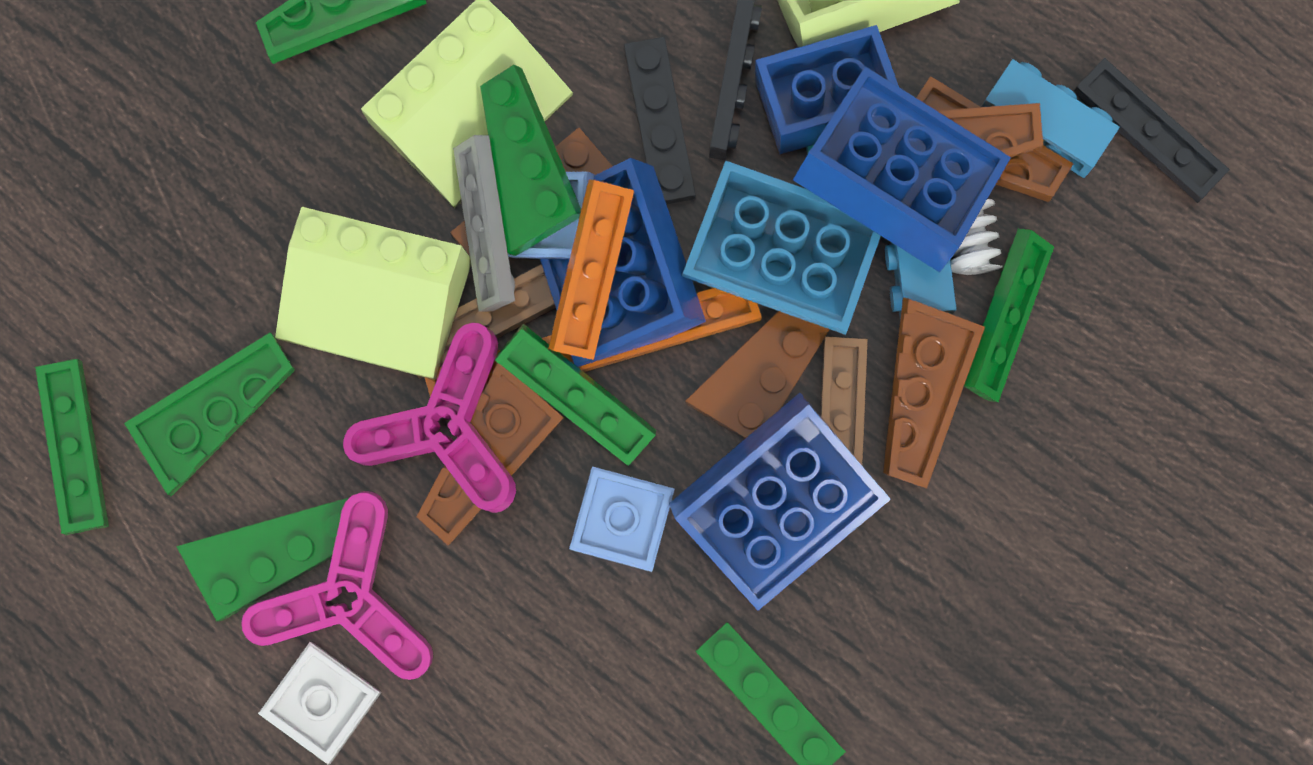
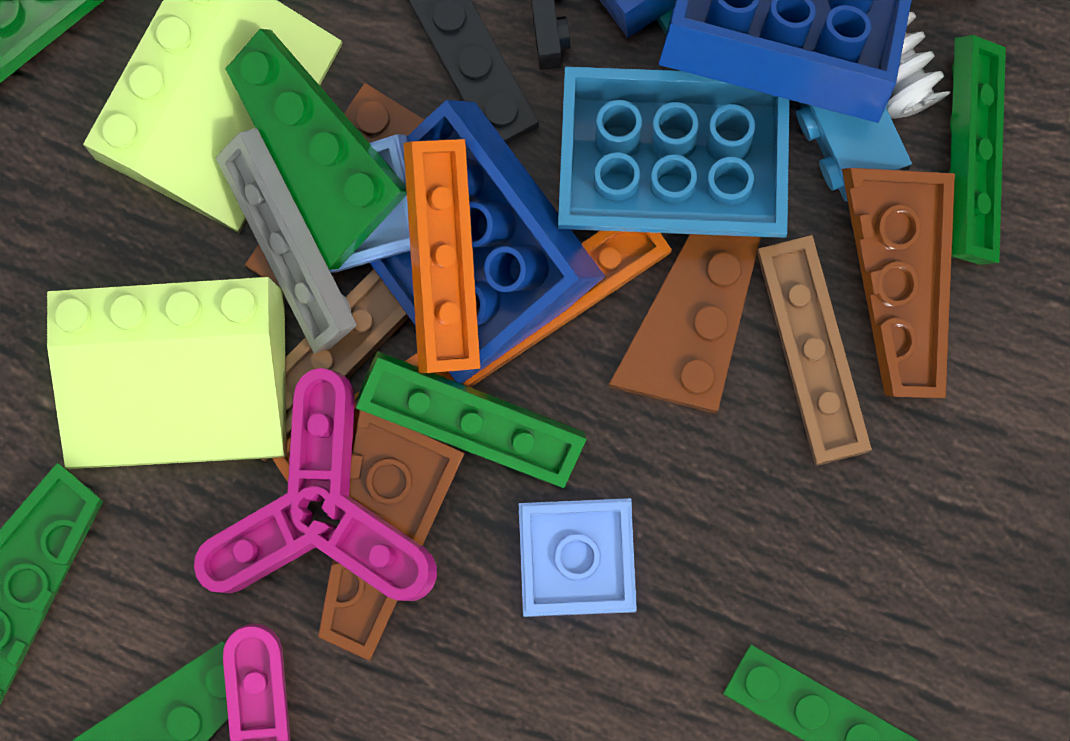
camera: 15 degrees left, 0 degrees up
(778, 502) = (767, 473): blue slope -> none

